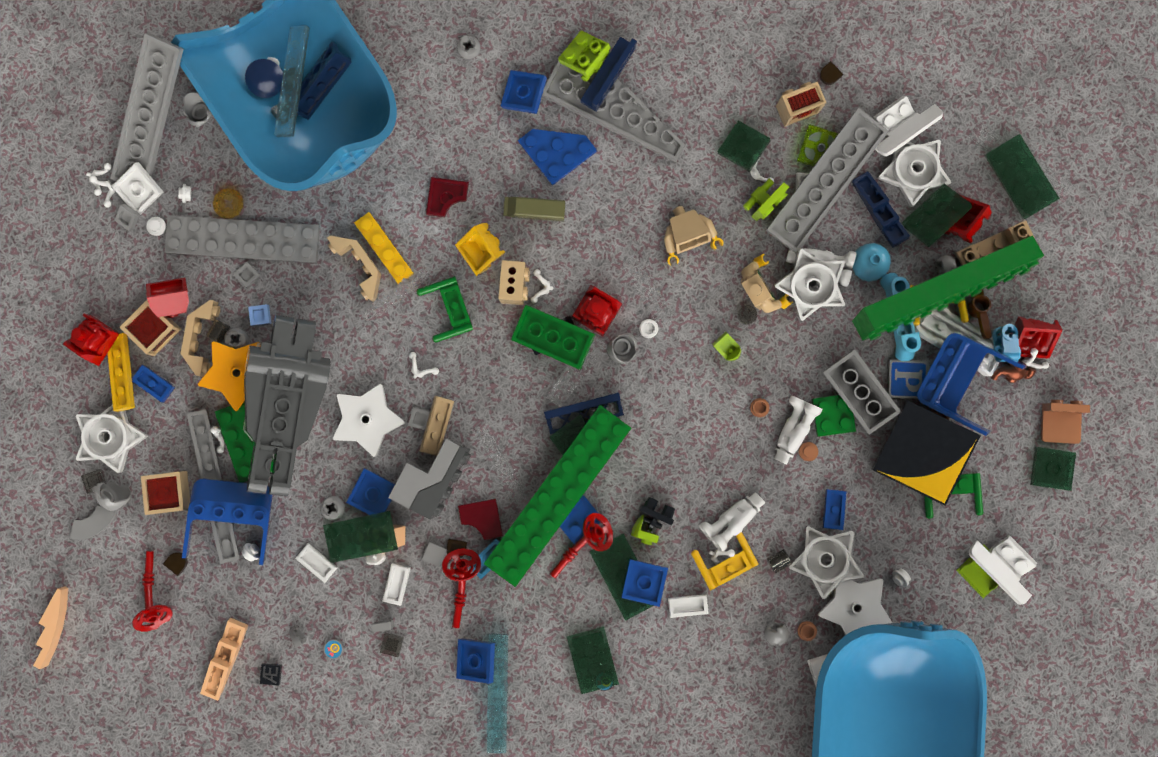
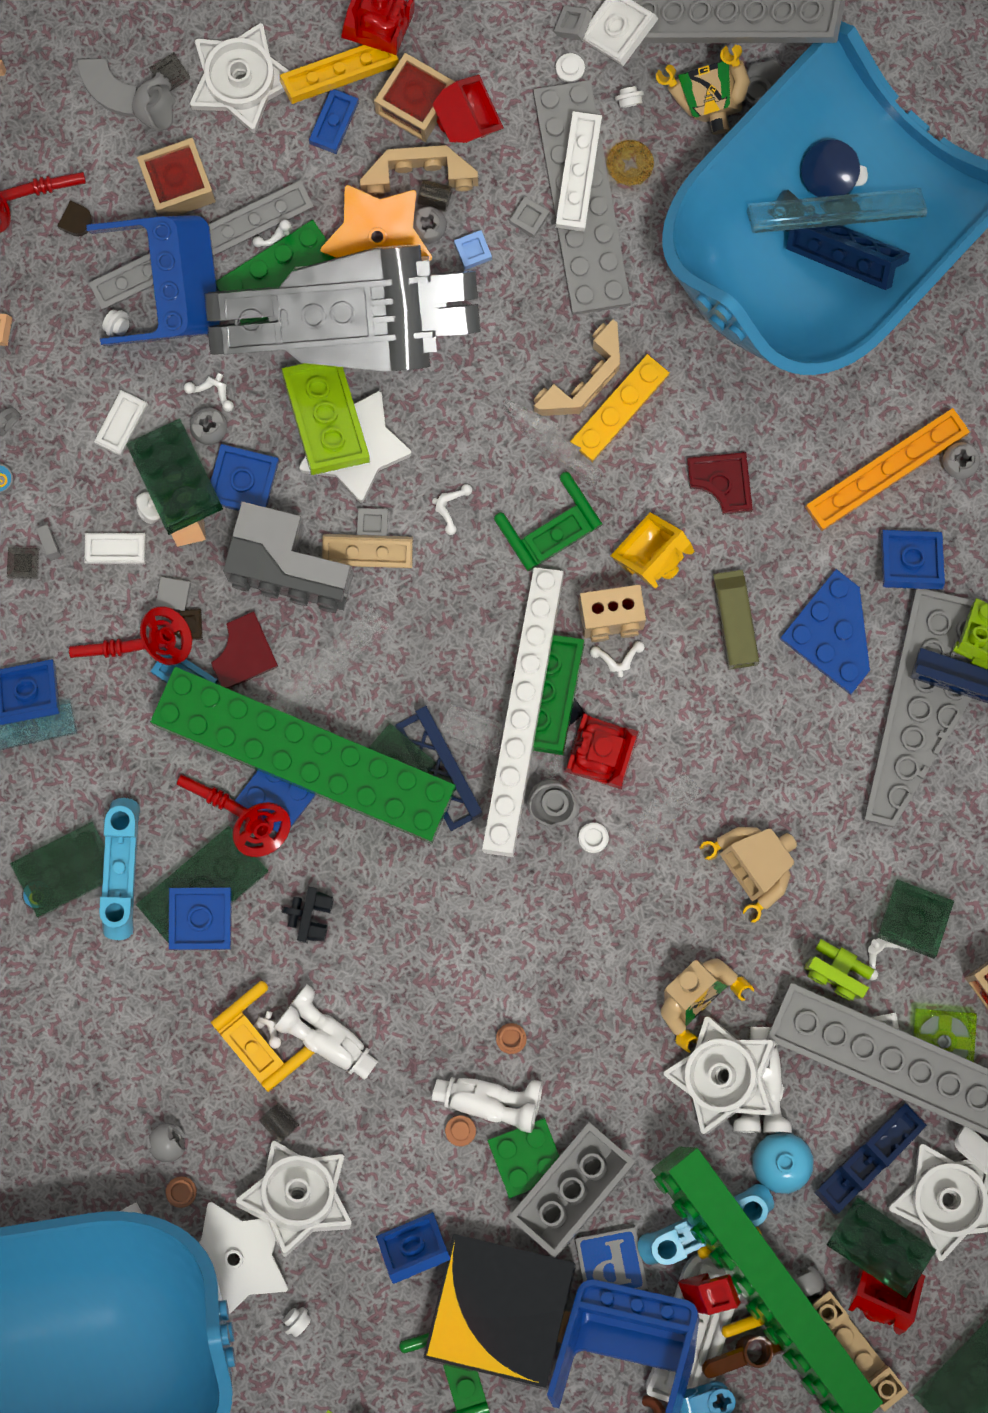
camera: 75 degrees right, 5 degrees down
(194, 140) = (711, 90): none -> torso
(225, 236) = (578, 171): none -> white plate
(304, 514) = (227, 405): none -> white piece
(346, 432) = (325, 417): none -> lime plate
(463, 93) = (887, 469): none -> light orange plate
(563, 352) = (523, 712): none -> white plate
(600, 626) = (119, 869): none -> medium azure plate
(646, 537) = (270, 908): lime plate -> none
(688, 605) = (179, 997): white tile -> none
(727, 347) = (593, 966): lime plate -> none
(747, 314) = (651, 986): clear smoke tile -> none
(834, 509) = (379, 1192): blue plate -> none
(874, 496) = (413, 1248): none -> blue plate
(947, 323) = (709, 1294): none -> red slope

